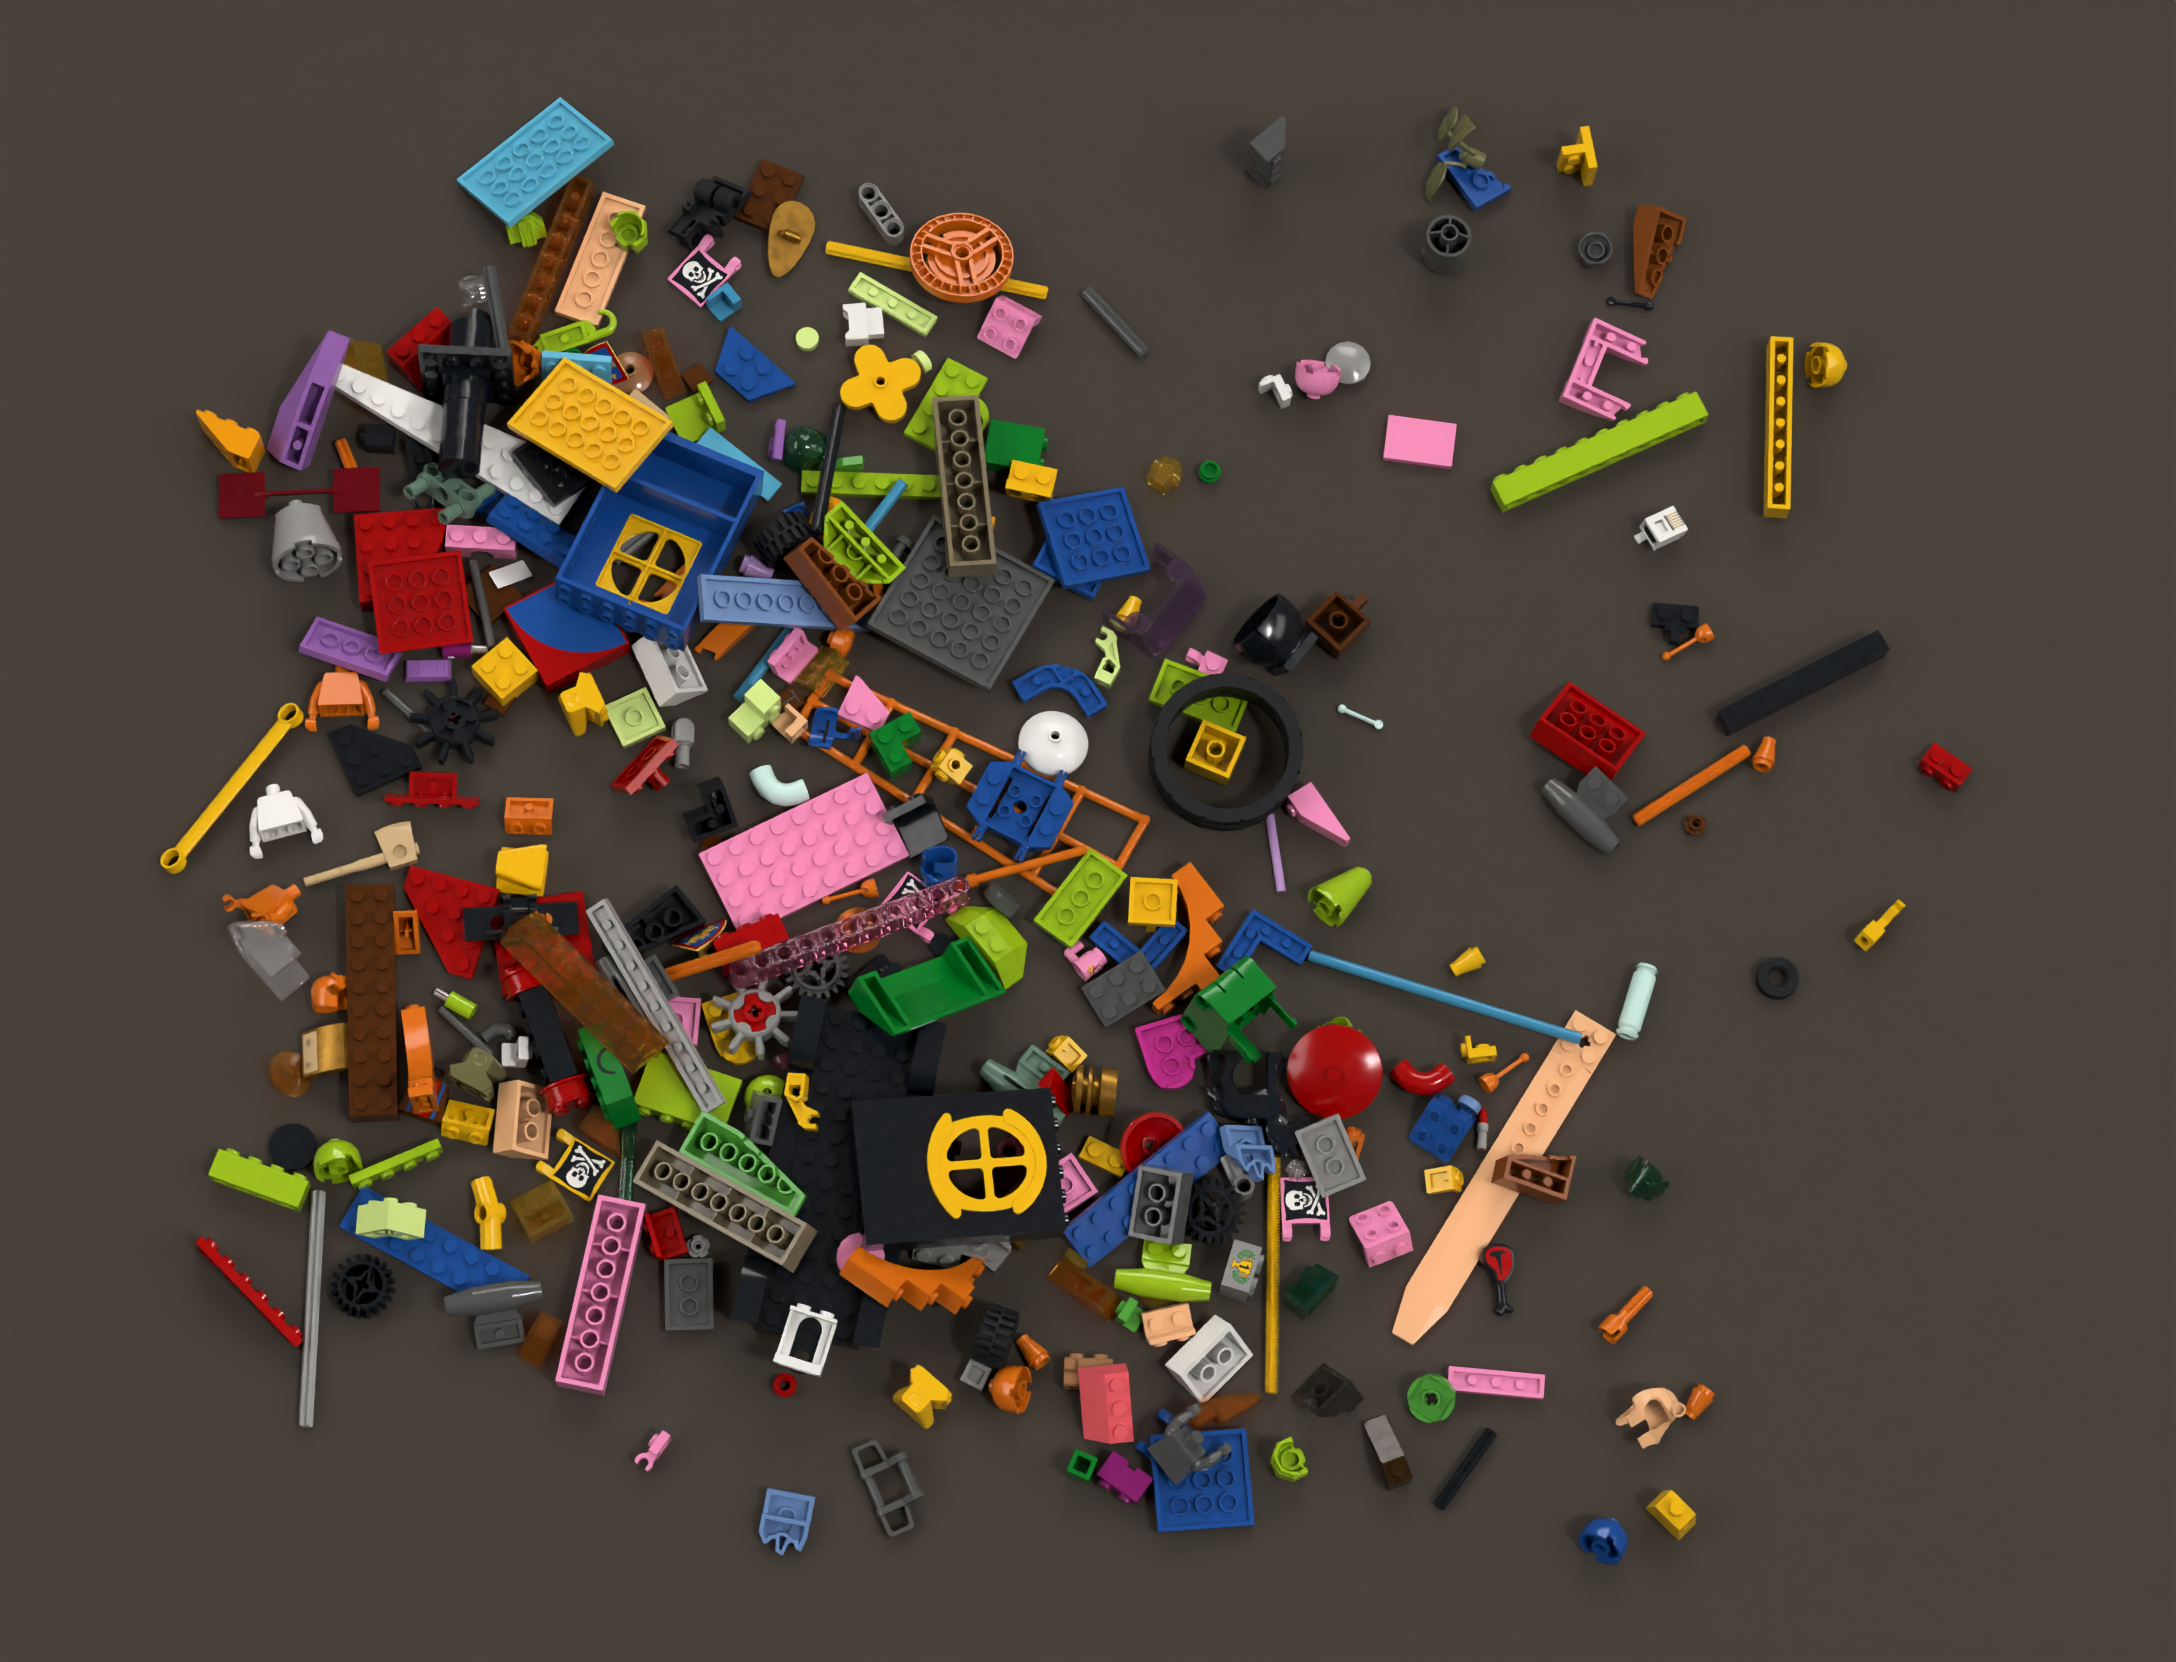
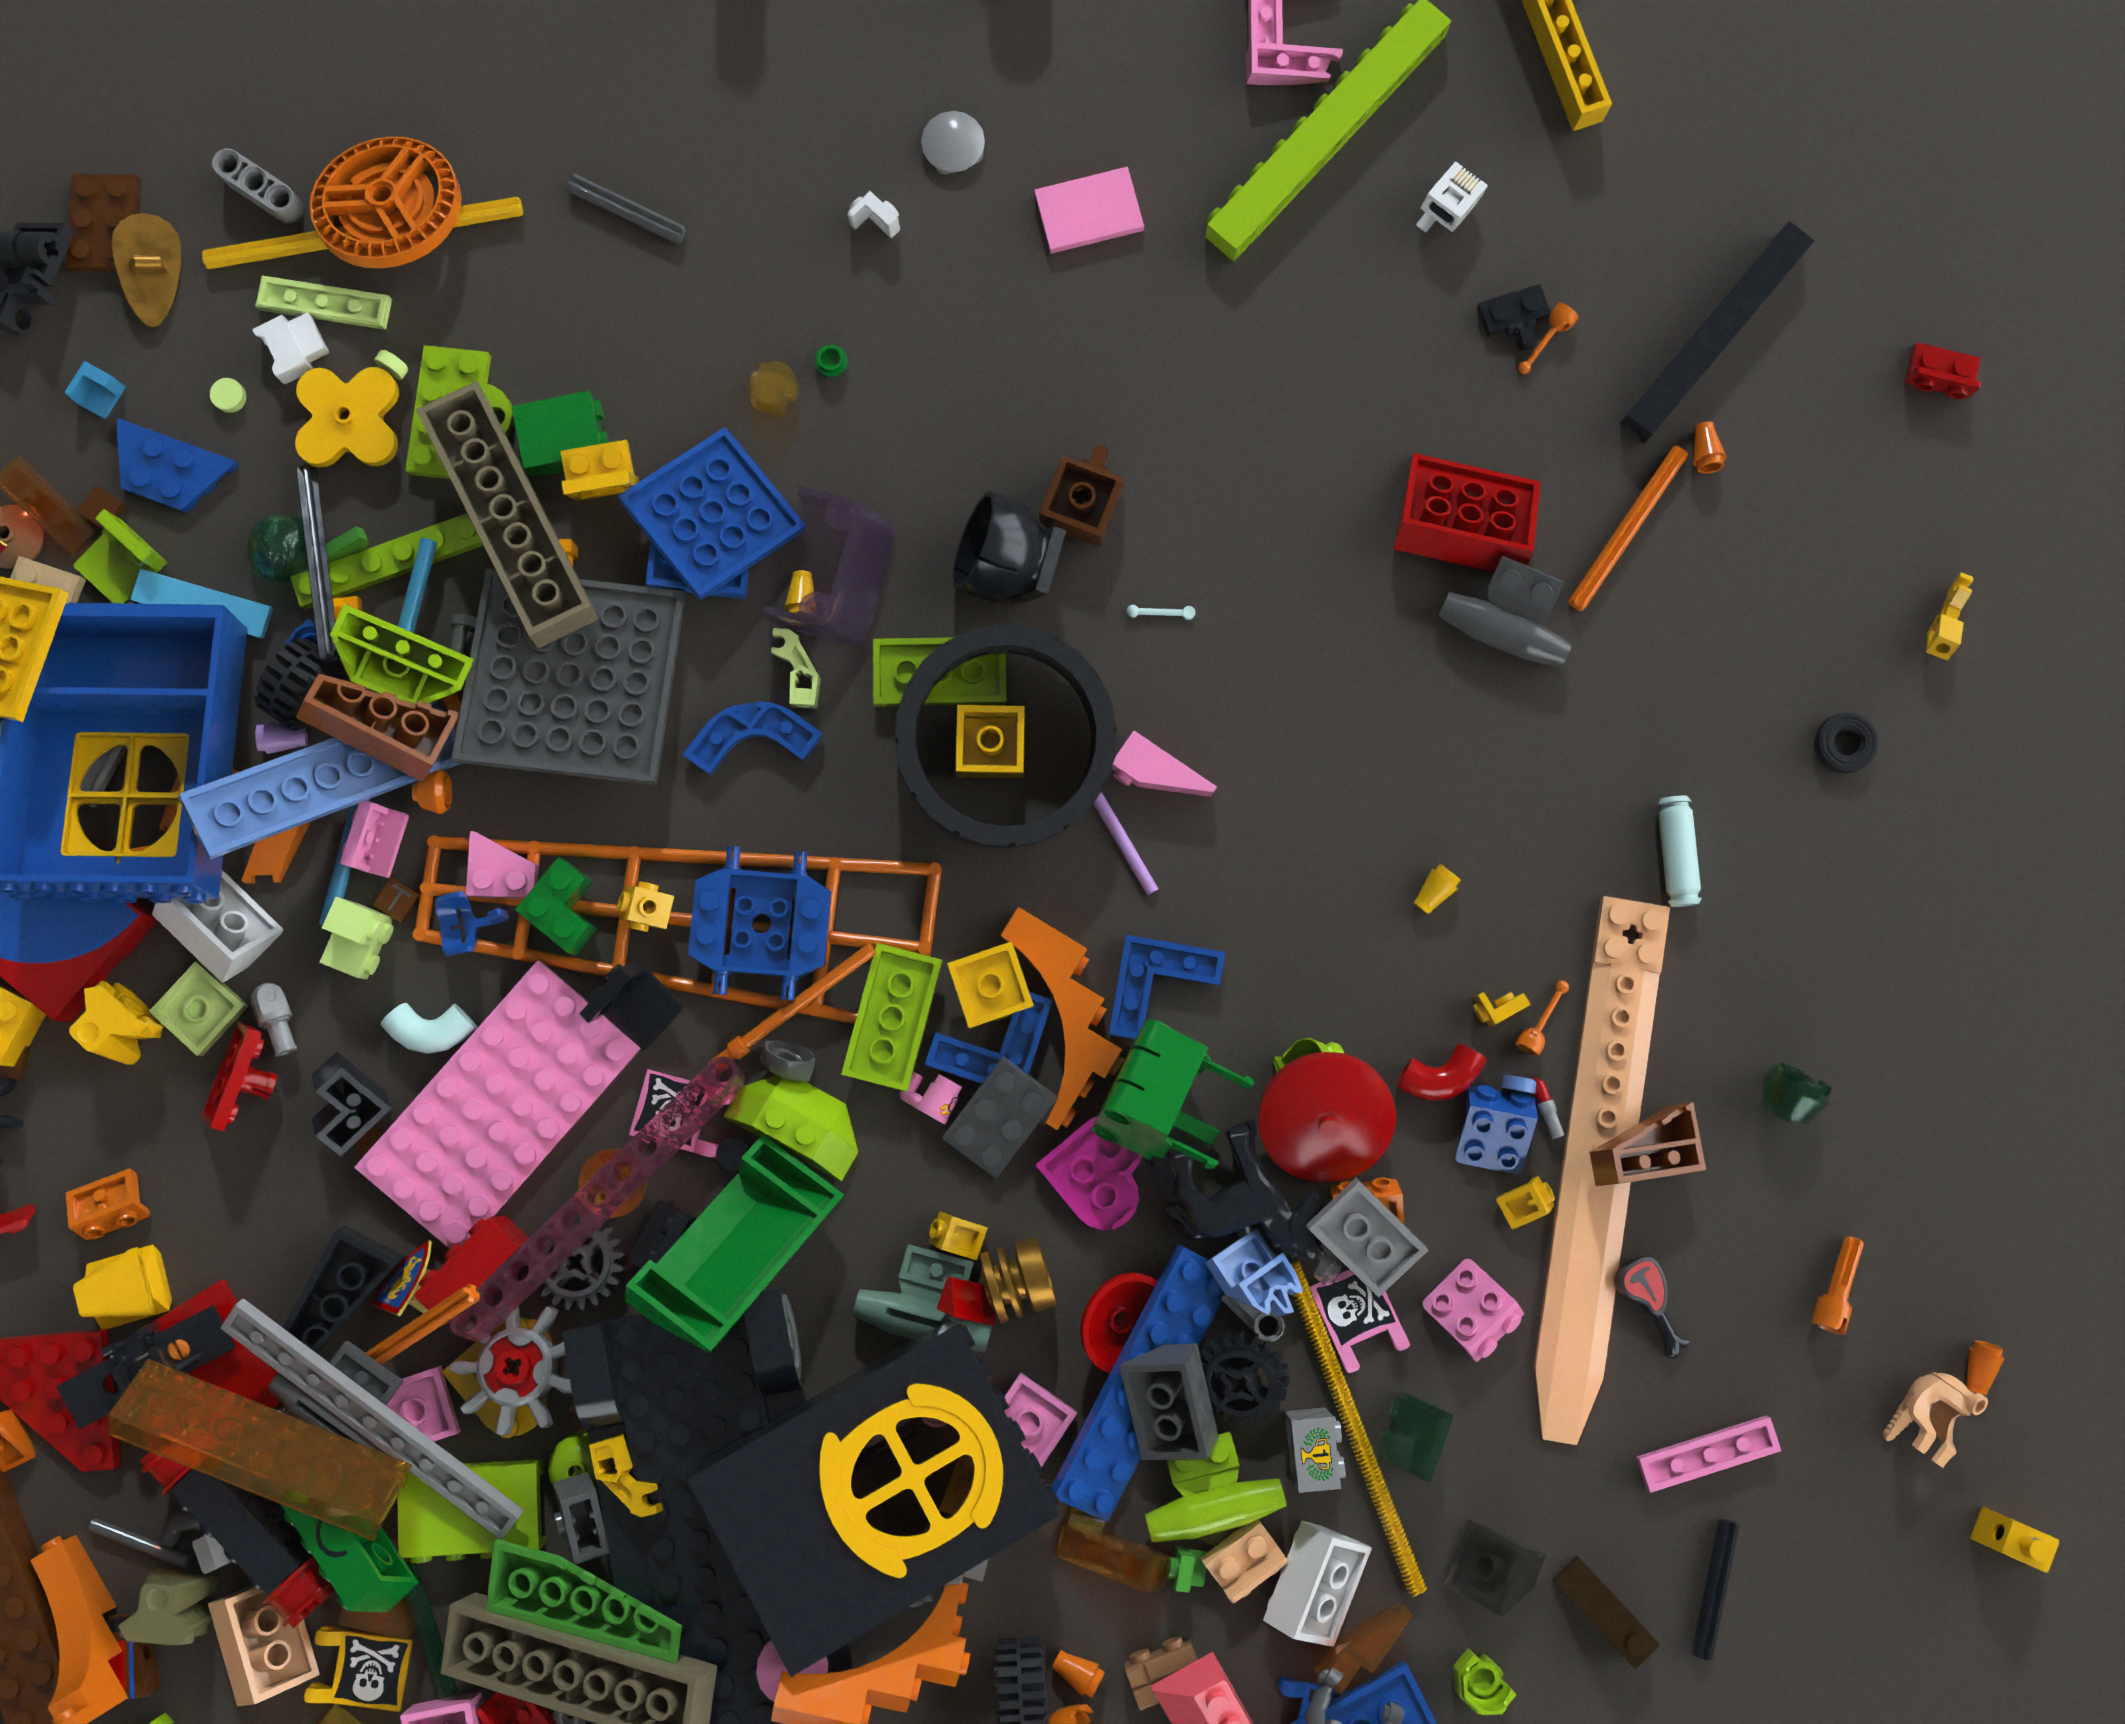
camera: 15 degrees left, 10 degrees up
(457, 1003) = (111, 1509): lime piece -> none
(467, 1122) = (186, 1672): yellow bracket -> none
(701, 274) = (52, 361): flag -> none
(775, 447) = (238, 550): medium lavender tile -> none
(790, 723) = (409, 935): light nougat panel -> none
(822, 671) = (424, 843): clear yellow bracket -> none
(867, 889) = (603, 1117): orange hinge -> none
(938, 865) = (684, 1050): blue helmet -> none
(1008, 326) = (486, 270): bright pink bracket -> none
(1051, 755) = (773, 835): white dish -> none
(1103, 1157) = (1061, 1357): yellow plate -> none
(1208, 664) = (936, 622): bright pink plate -> none
(1316, 378) = (919, 178): bright pink cylinder -> none
(1339, 895) = (1234, 868): lime cone -> none
(1418, 1401) = (1631, 1497): bright green plate -> none
(1445, 997) = (1429, 950): dark azure piece -> none
(1604, 1538) = (1944, 1613): blue cylinder -> none
(1691, 829) = (1648, 584): reddish brown plate -> none

